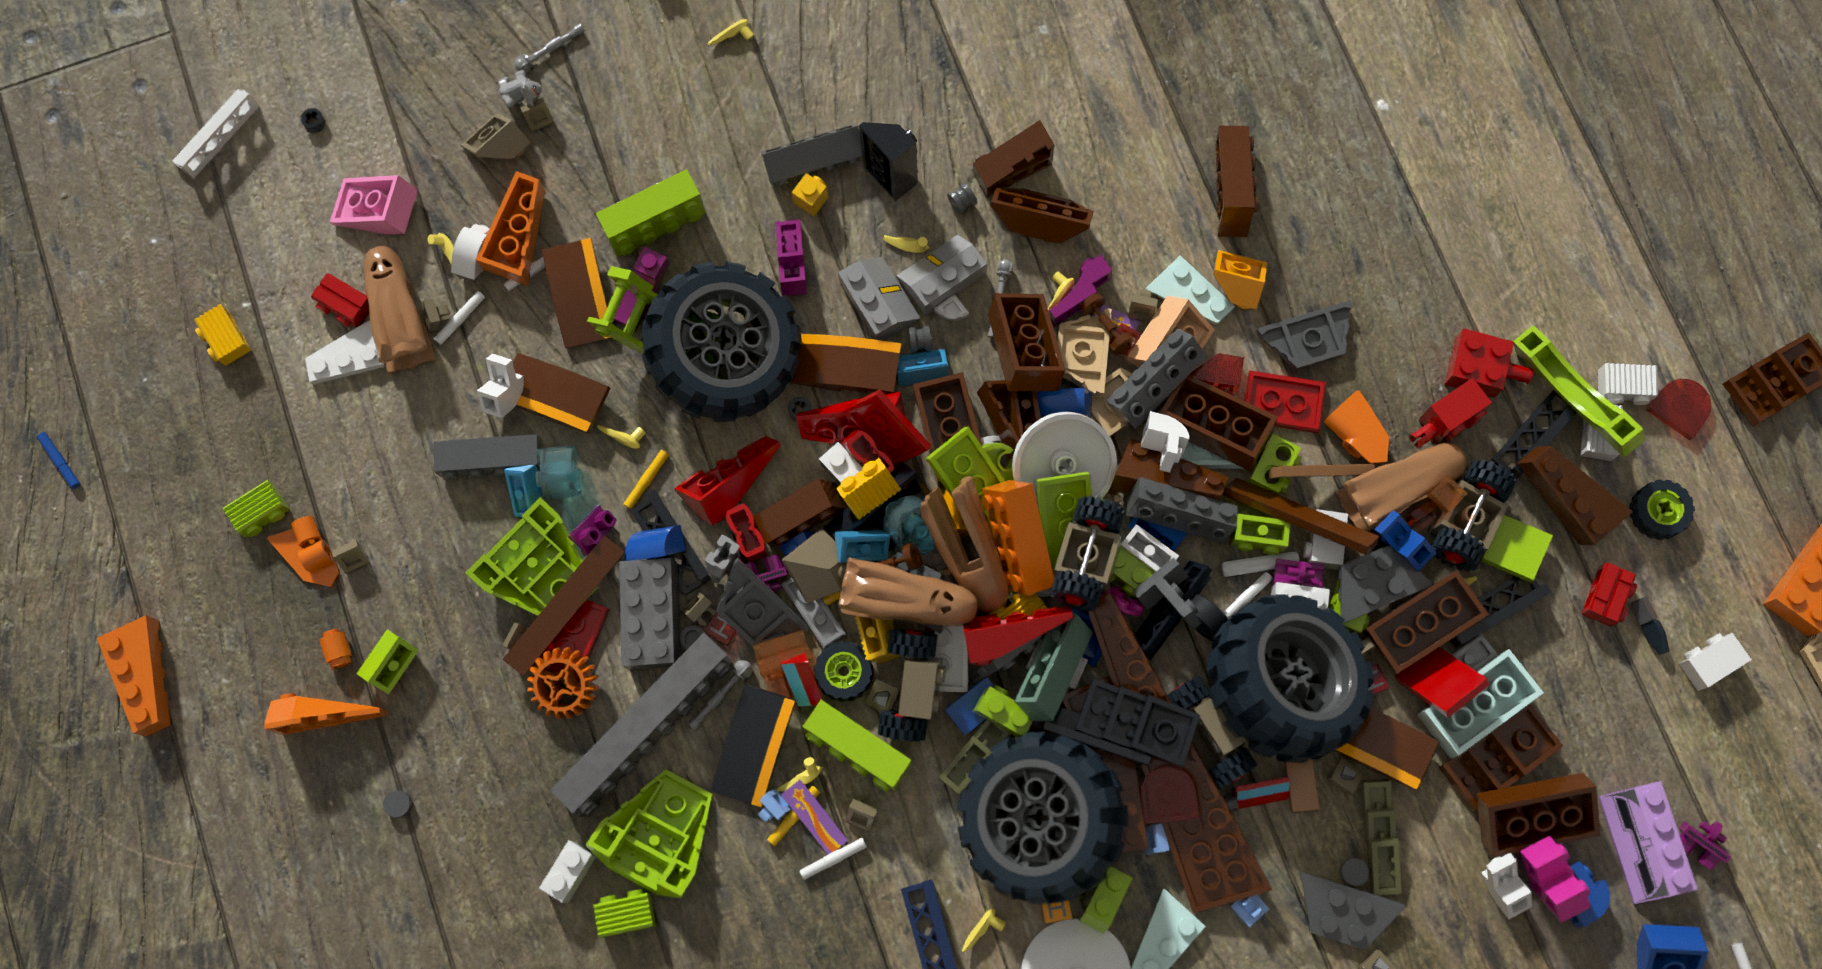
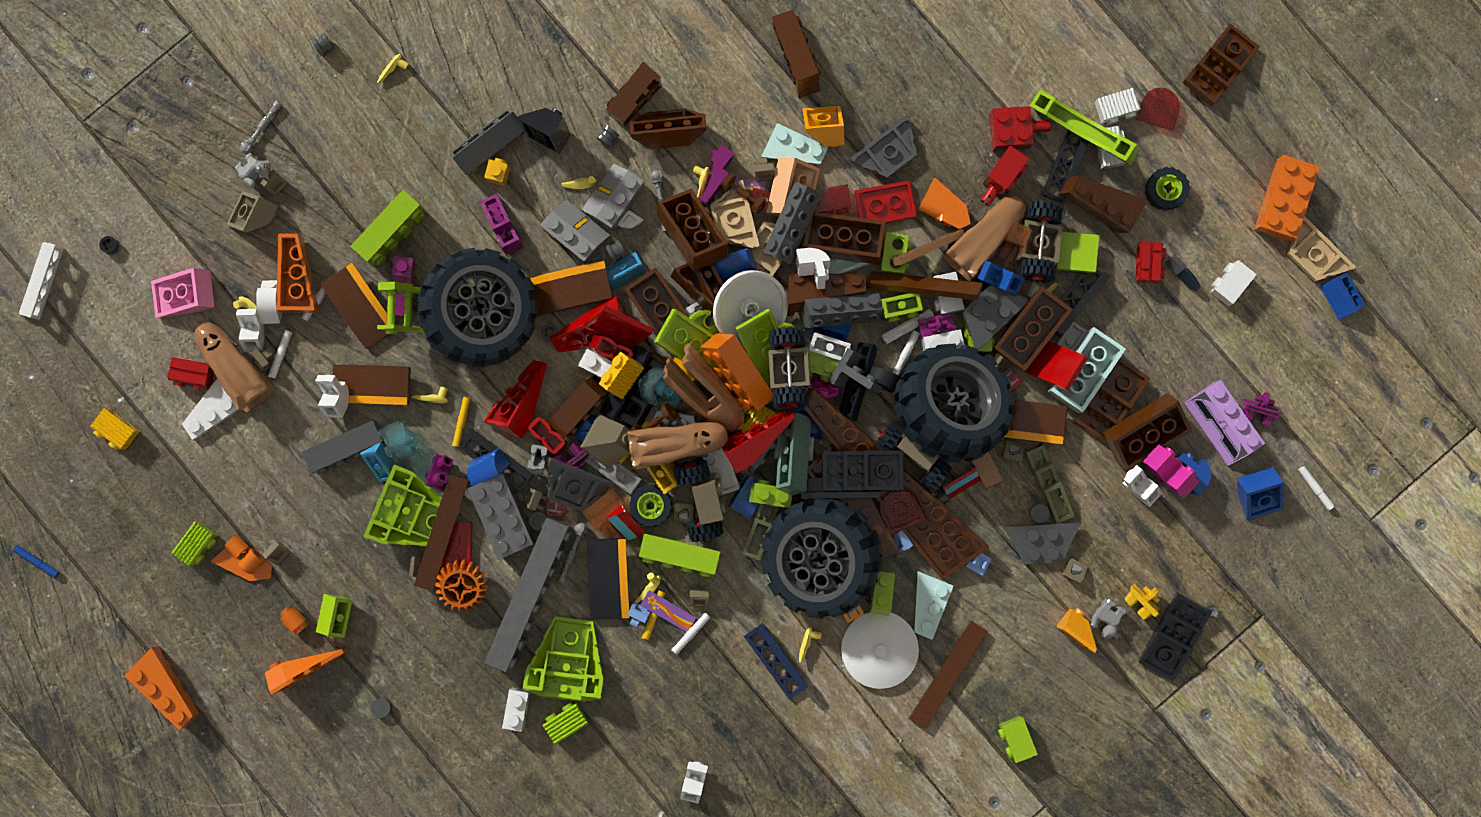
camera: 25 degrees left, 10 degrees up
(436, 277) = (251, 330): none -> white brick
(862, 545) = (631, 416): dark azure slope -> none

